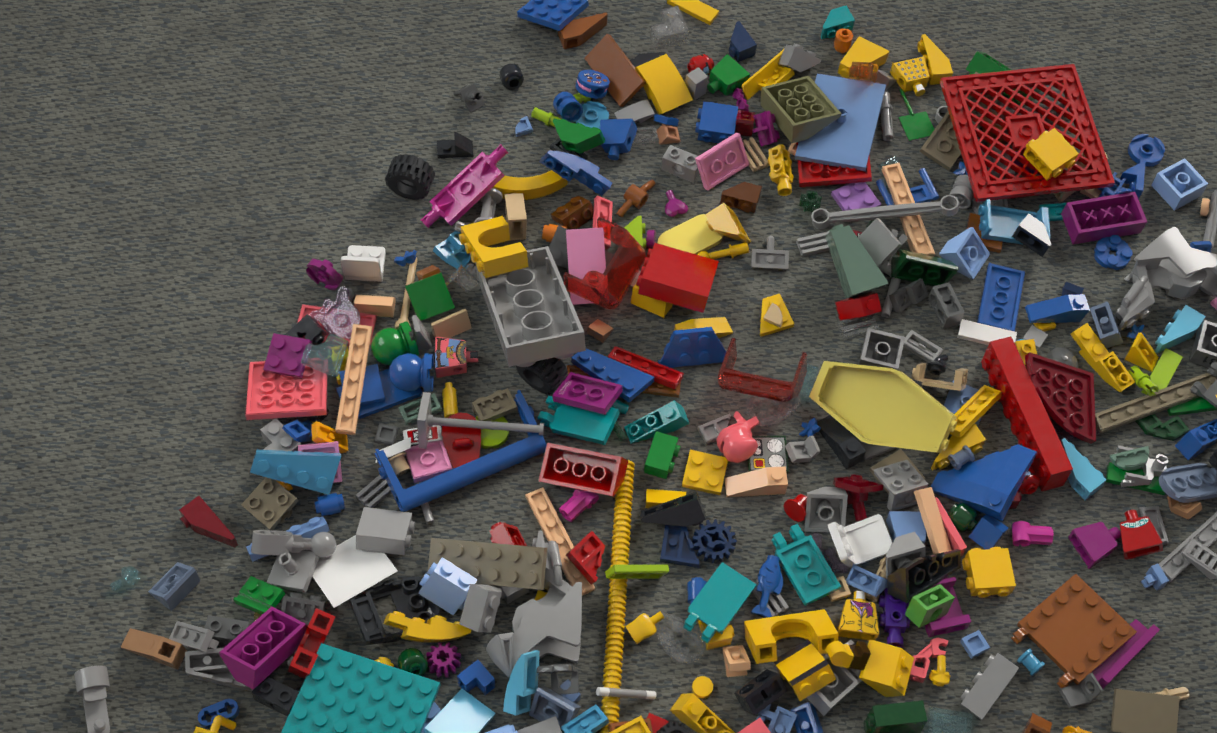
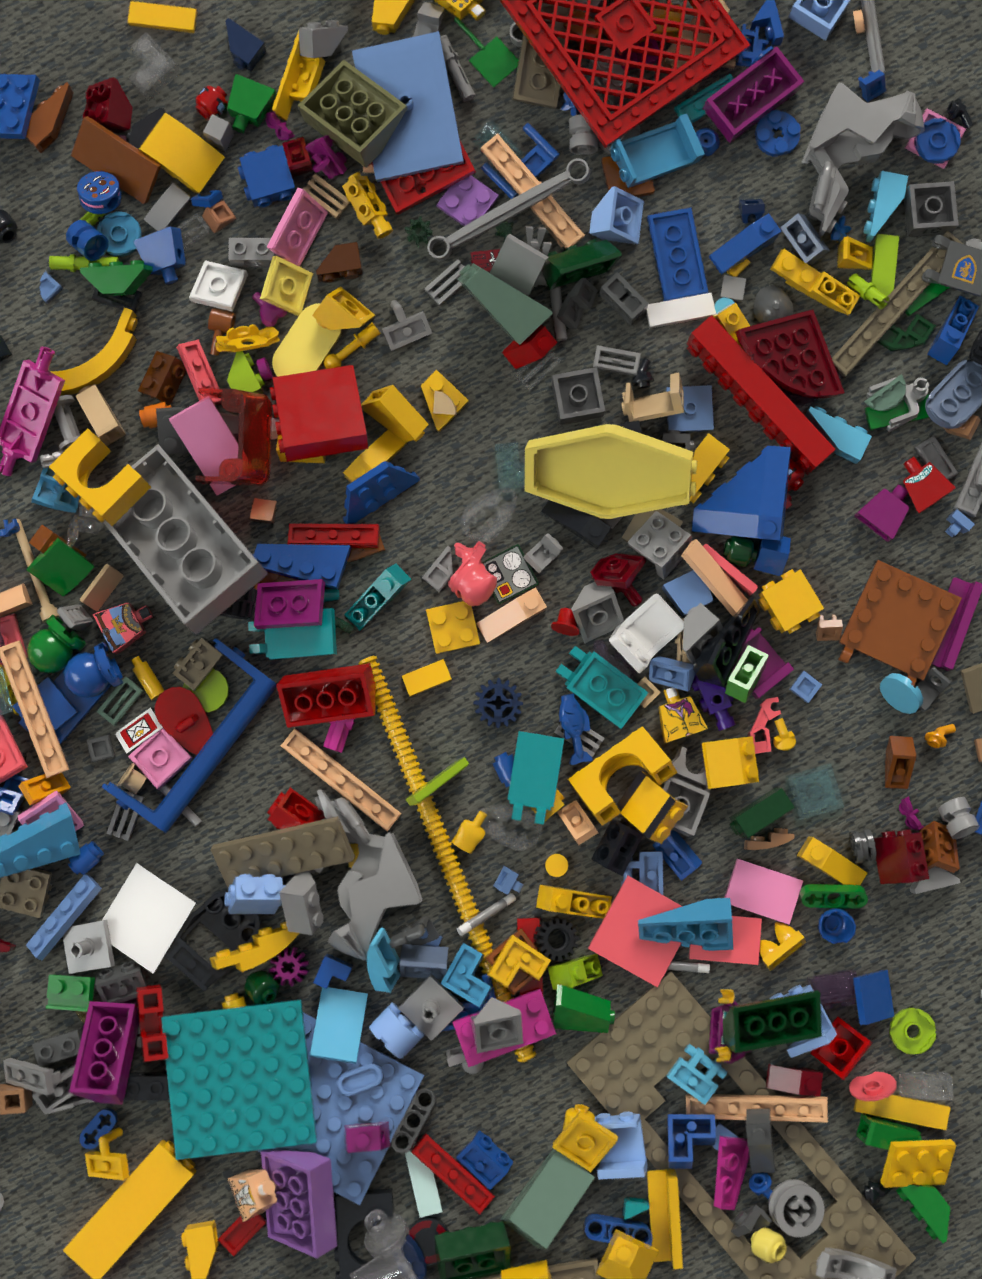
camera: 25 degrees left, 25 degrees up
(278, 542) = (63, 932): light grey beam -> none
(384, 531) = (158, 863): light grey brick -> none
(397, 447) = (118, 765): white sticker -> none
(426, 421) = (136, 721): light grey tile -> none
(572, 166) = (133, 326): blue slope -> none
(587, 556) = (377, 785): red wing -> none
(629, 37) = (108, 105): none -> dark red slope
(645, 173) = (218, 286): none -> white tile
(648, 212) = (241, 334): none -> yellow piece
(656, 679) = (507, 881): none -> medium blue tile
(661, 455) = (399, 632): green brick -> none
(678, 512) = (447, 693): black slope -> none
(678, 547) = (463, 726): dark blue wing -> none
(695, 193) = (286, 285): none -> light yellow tile
(734, 305) = (395, 413): none -> yellow slope
(758, 385) = (437, 514): clear red windscreen -> none
(810, 428) = (539, 521): blue plant -> none
(848, 655) = (689, 774): leg -> none
(864, 71) = (406, 25): clear orange slope -> none
(961, 457) = (713, 486): sand blue bush -> none
(975, 409) = (704, 420): yellow plate -> none
(988, 685) = (837, 728): light grey wedge -> none
(1013, 609) = (829, 629): none -> medium nougat tile
(1025, 534) = (812, 536): dark pink piece -> none
(1030, 662) = (868, 679): dark azure bush -> none
(1033, 235) = (683, 159): black slope -> none
(1050, 154) = (666, 47): yellow brick -> none
(1055, 682) = (901, 694): none -> medium azure tile
(1060, 235) = (712, 138): none -> blue plate

